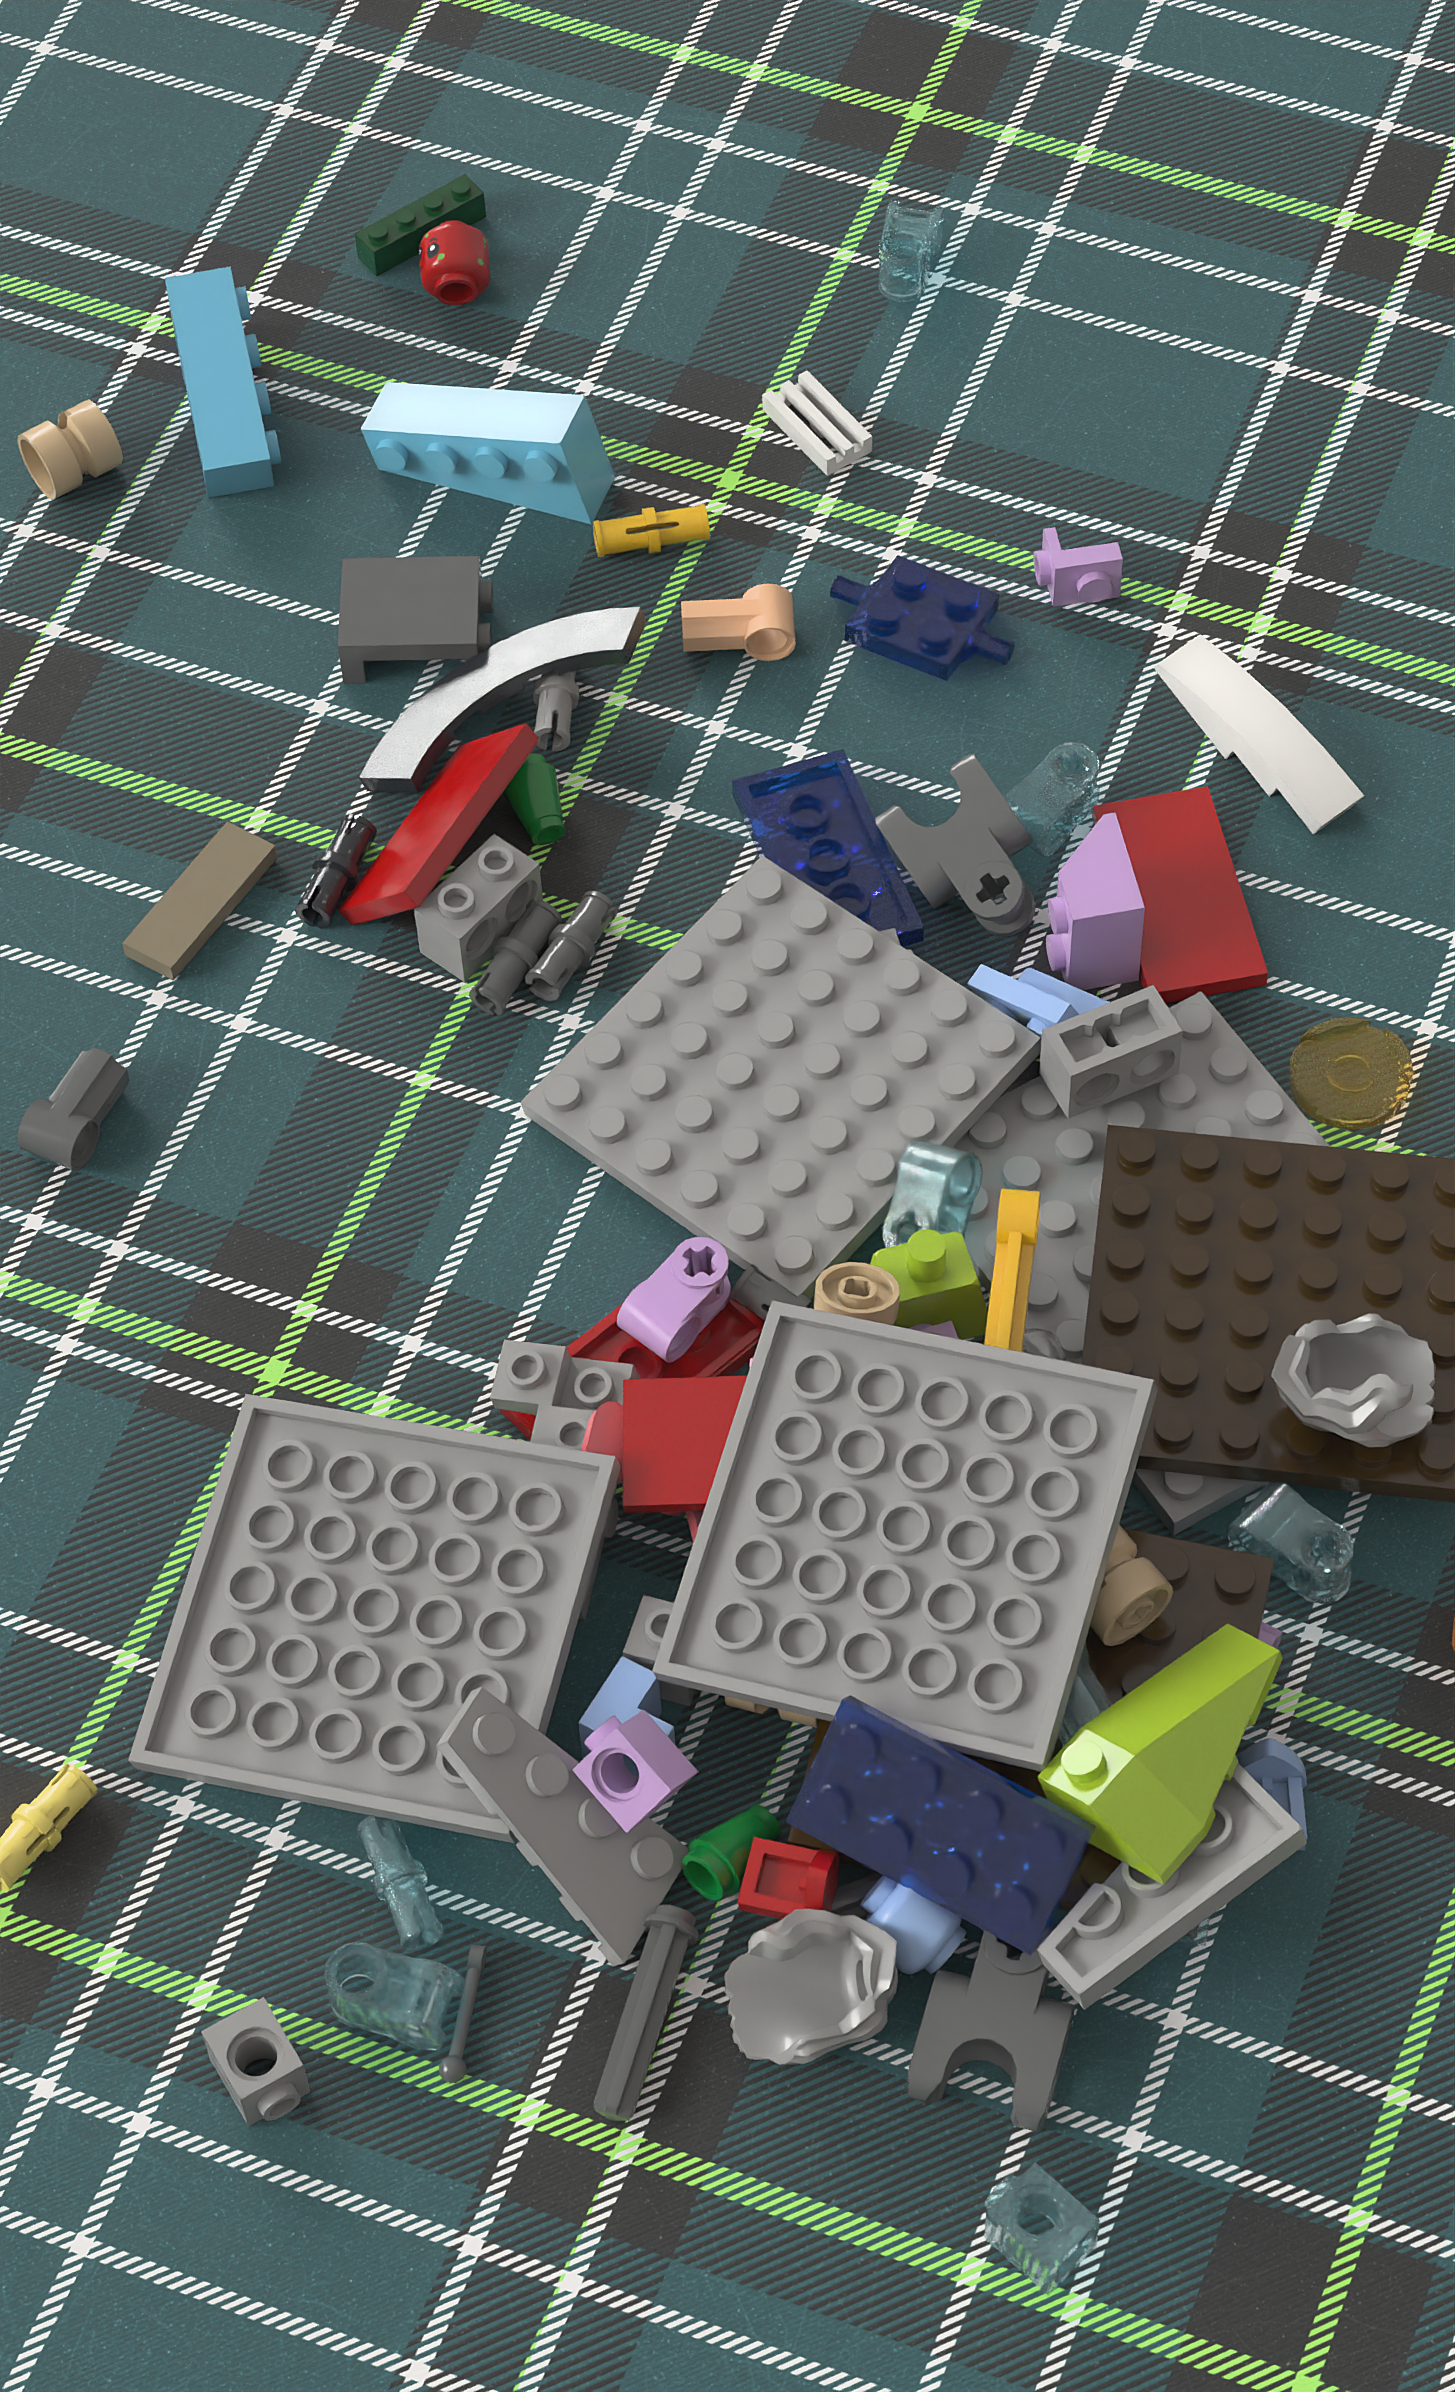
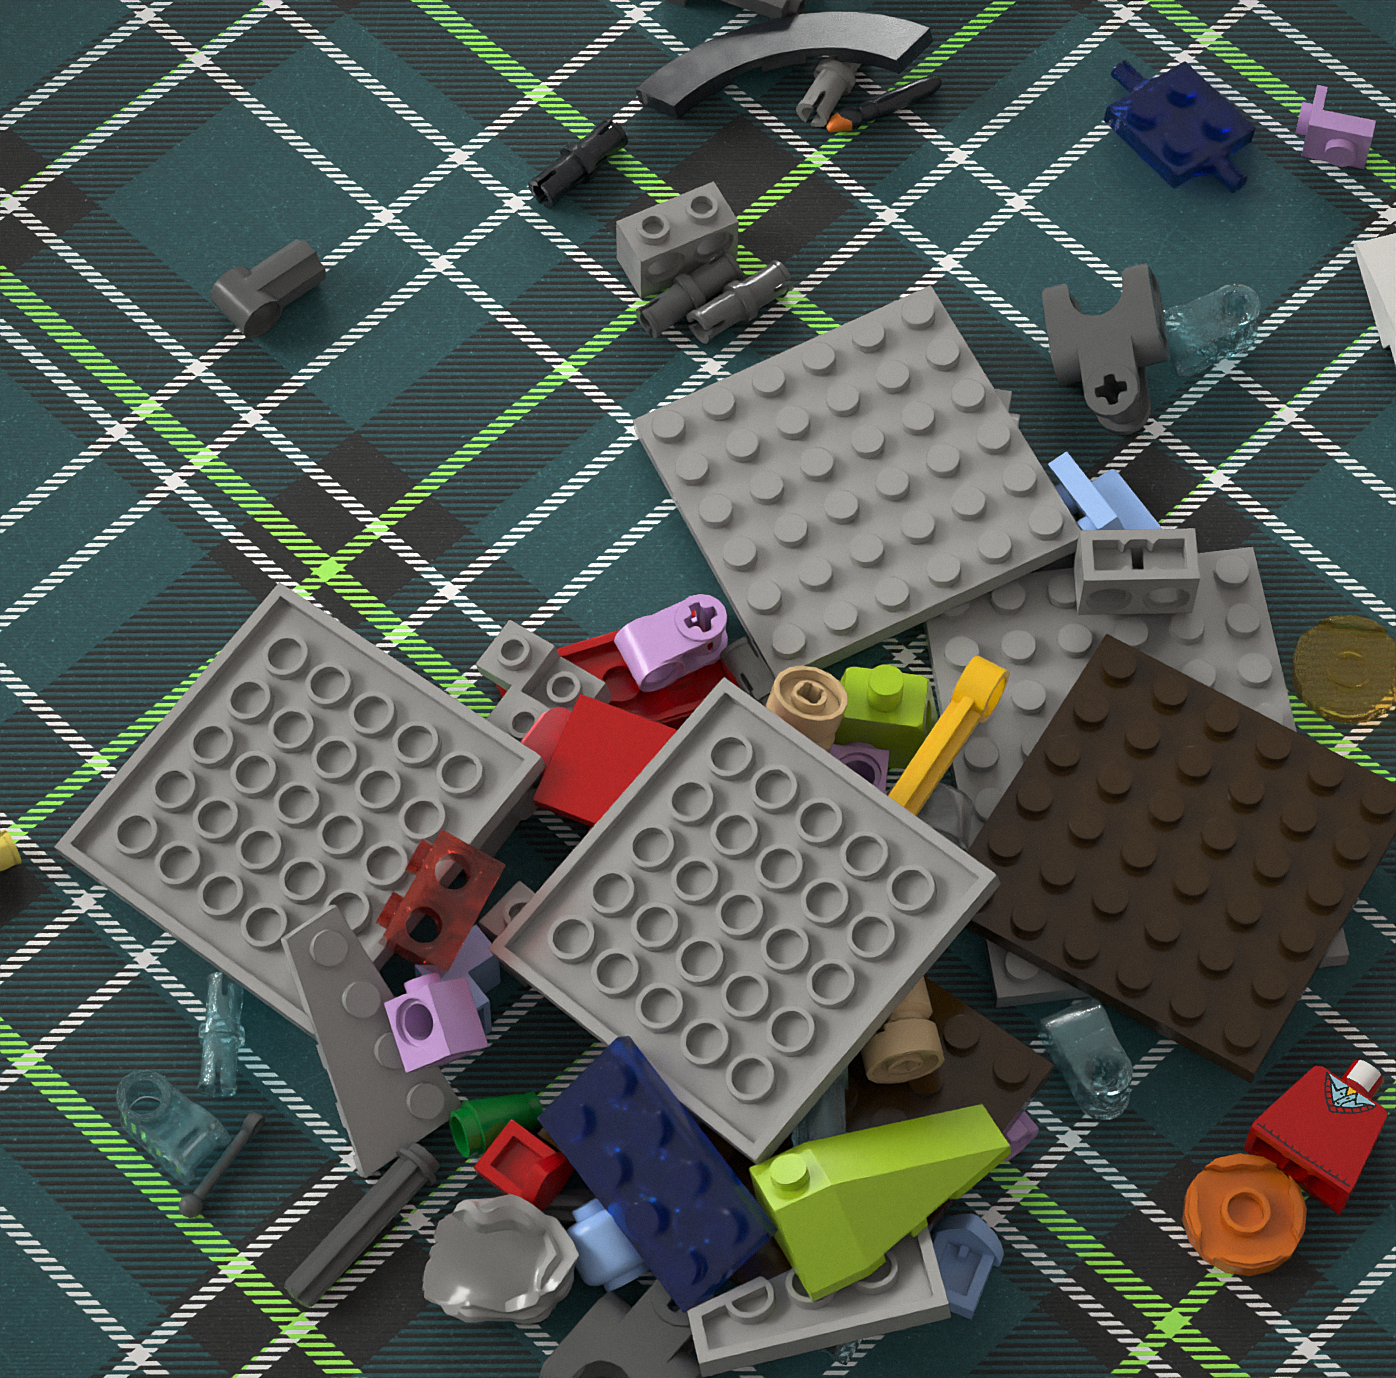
camera: 20 degrees right, 5 degrees up
(200, 900) = (456, 145): dark tan tile -> none
(251, 2036) = (30, 1113): light grey brick -> none
(439, 825) = (677, 155): red tile -> none
(536, 800) = (771, 160): green cone -> none
(593, 727) = (853, 117): none -> black piece
(598, 1647) = (451, 909): none -> clear red brick
(757, 622) = (1032, 77): light nougat piece -> none
(824, 833) = (993, 289): clear blue plate -> none
(933, 1191) = (928, 635): clear light blue piece -> none
(1097, 912) = (1187, 443): lavender slope -> none
(1194, 907) = (1278, 455): red tile -> none
(1358, 1379) = (1196, 941): light grey hair -> none

